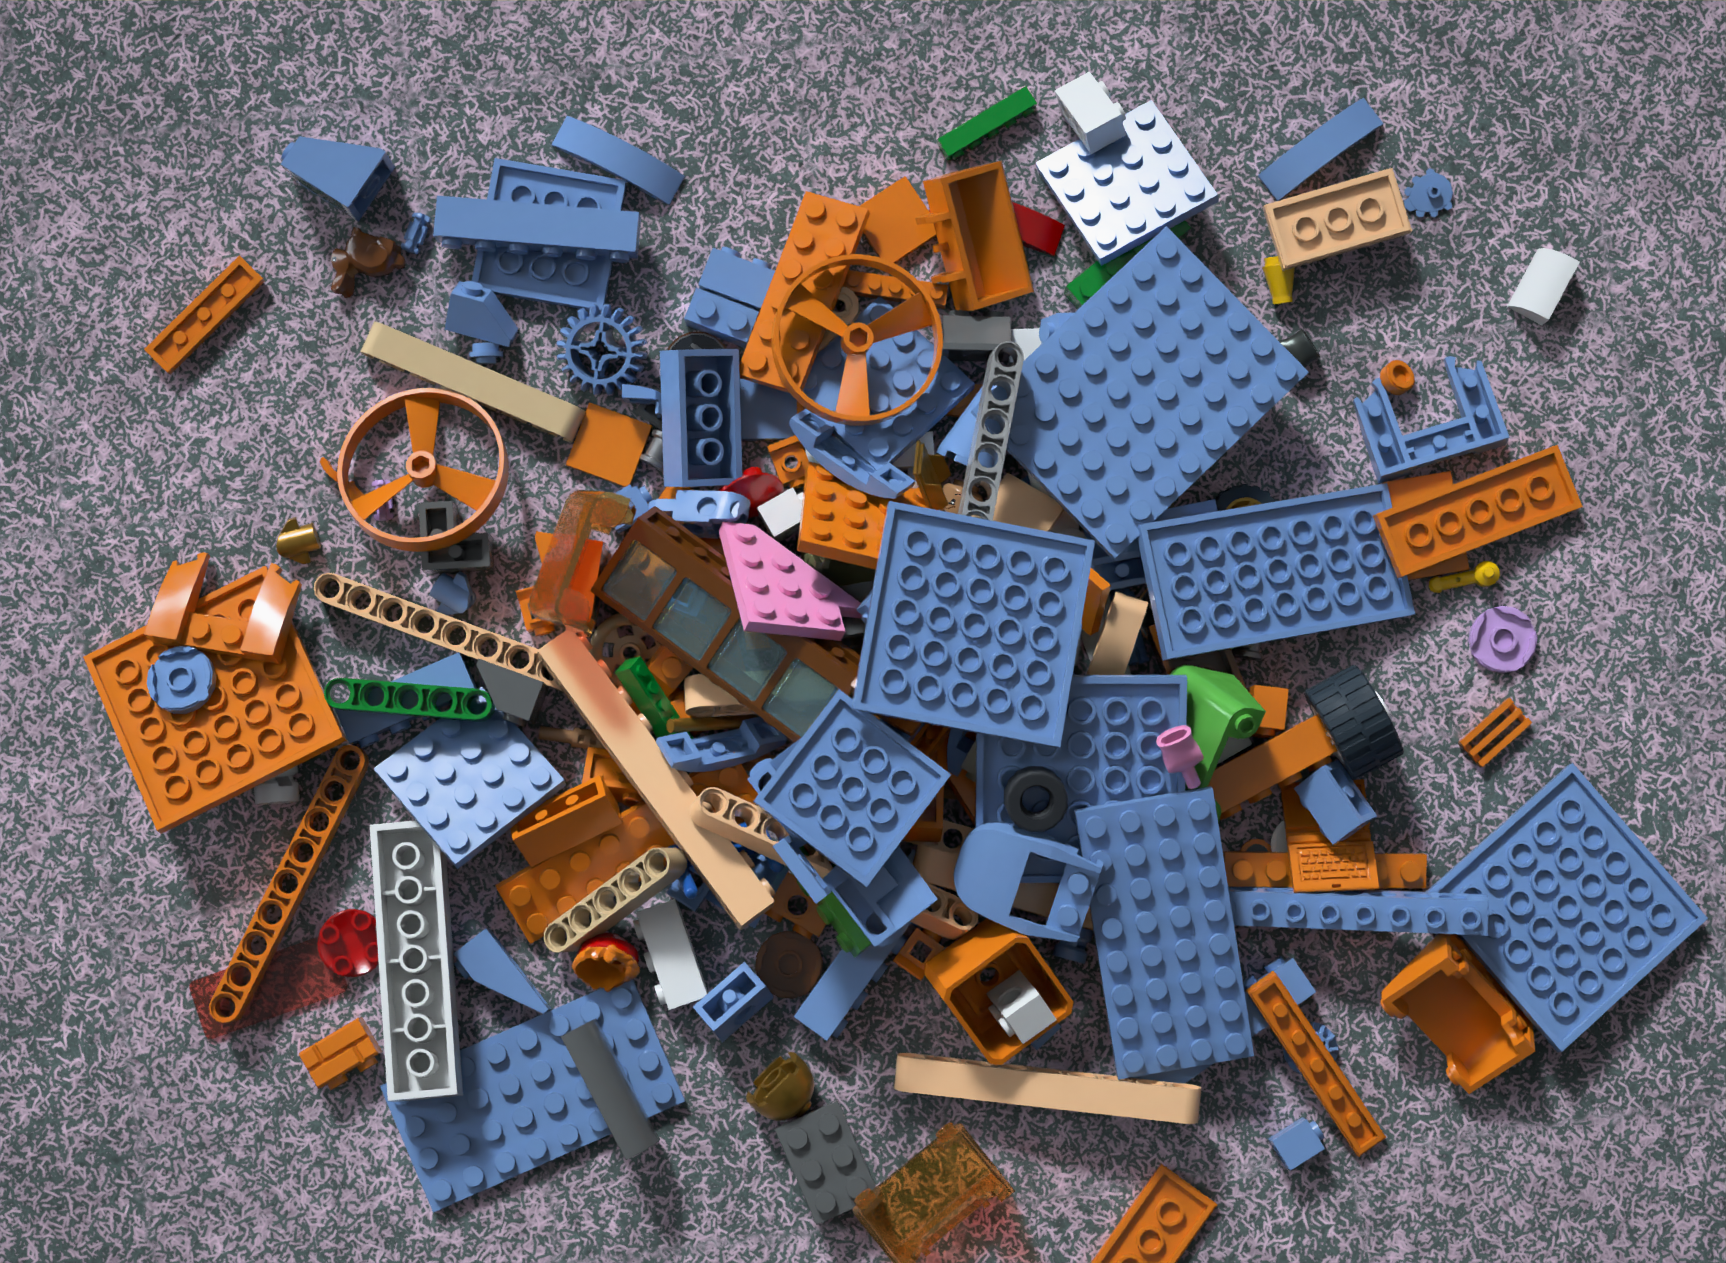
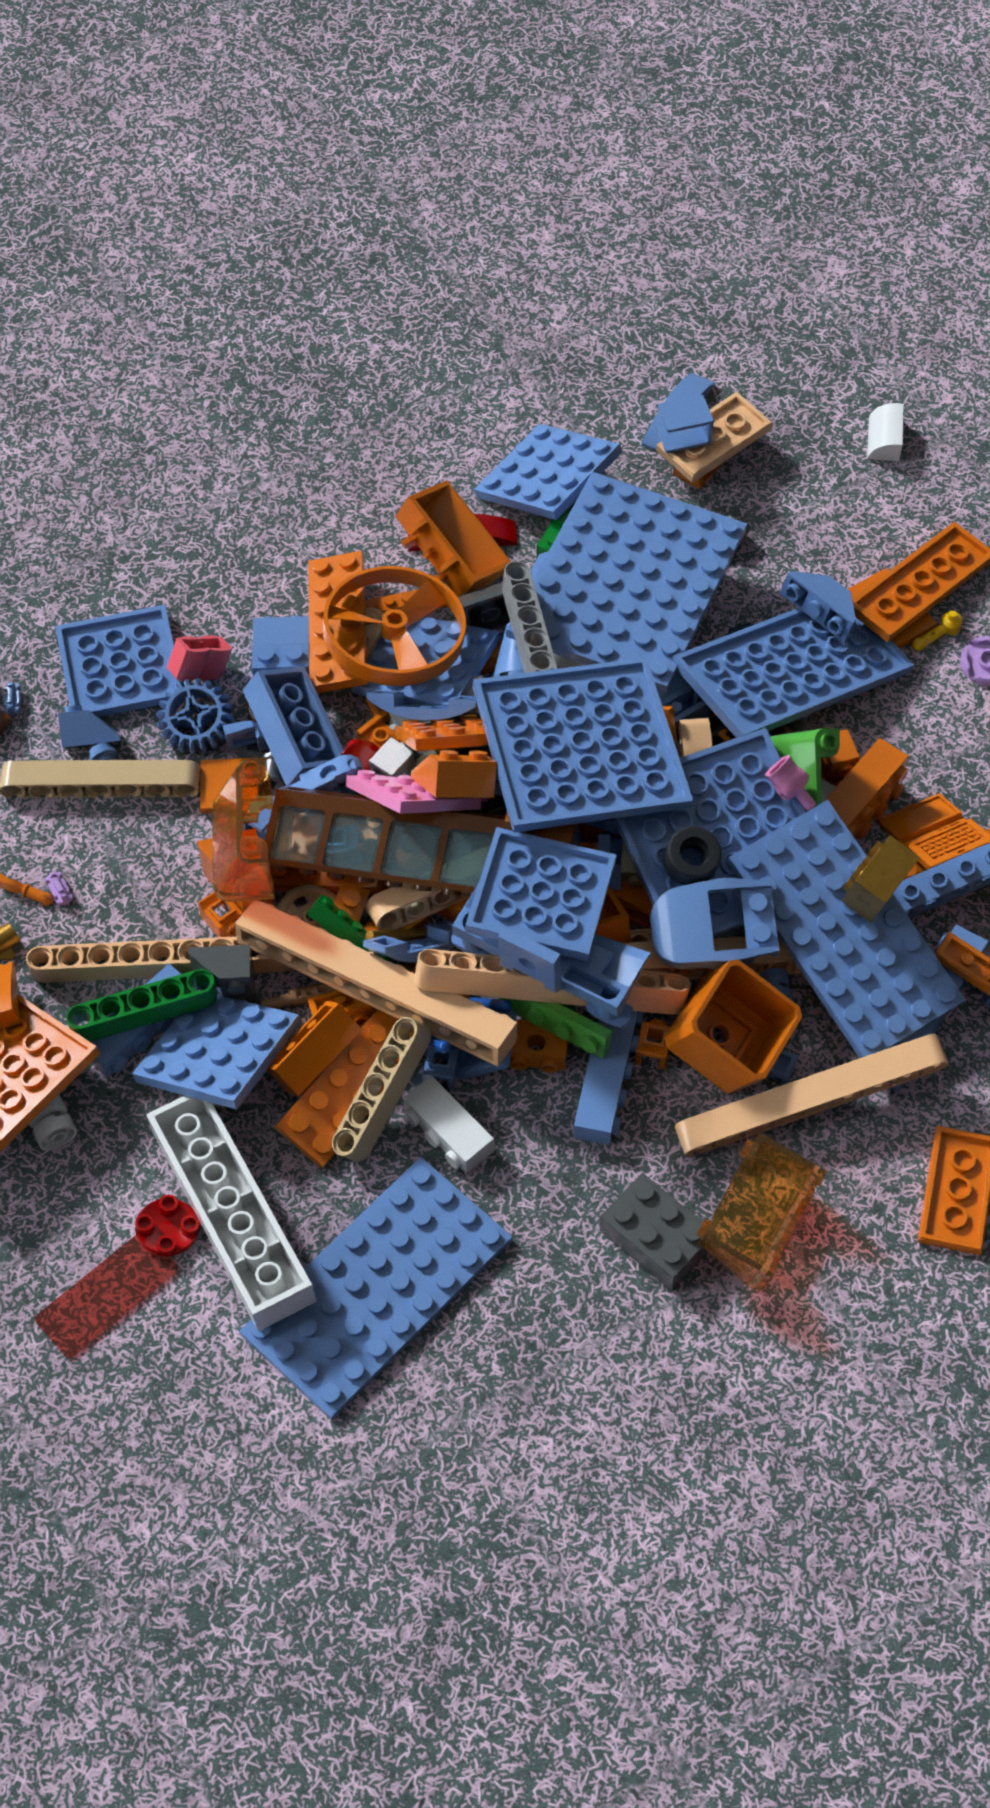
camera: 20 degrees left, 25 degrees down
(275, 893) = (96, 1210): orange beam -> none
(340, 1053) = (194, 1317): orange brick -> none
(422, 415) = (86, 844): orange piece -> none
(453, 594) = (146, 929): medium blue piece -> none
(468, 555) = (131, 896): dark grey brick -> none
(493, 967) = (302, 1195): medium blue slope -> none
(537, 227) = (104, 652): medium blue brick -> none
(606, 961) = (395, 1148): orange hair -> none
(610, 1089) = (443, 1240): dark grey brick -> none
(619, 159) = (152, 593): medium blue slope -> none
(633, 277) = (199, 658): none -> coral brick
(733, 1002) = (517, 1137): medium blue brick -> none
(765, 412) = (346, 712): medium blue tile -> none
(783, 1089) = (592, 1188): pearl gold cylinder -> none
(789, 953) = (548, 1109): reddish brown tile -> none
(825, 603) = (457, 775): none -> orange slope
(893, 223) = (388, 551): orange tile -> none
(987, 124) = (428, 474): green piece -> none
(1019, 1007) = (758, 1036): white brick -> none
(1091, 112) = (499, 439): white brick -> none
(1216, 914) = (878, 877): none -> pearl gold brick
(1278, 281) = (691, 493): yellow cone -> none
(1303, 201) = (685, 424): none -> medium blue piece
(1335, 802) = (926, 799): medium blue brick -> none
(1348, 504) = (822, 600): none -> medium blue slope
(1355, 721) = (917, 731): black wheel -> none
(1397, 377) = (813, 524): orange tile -> none
(1429, 194) = (774, 409): medium blue piece -> none
(1476, 431) = (886, 534): medium blue wedge -> none

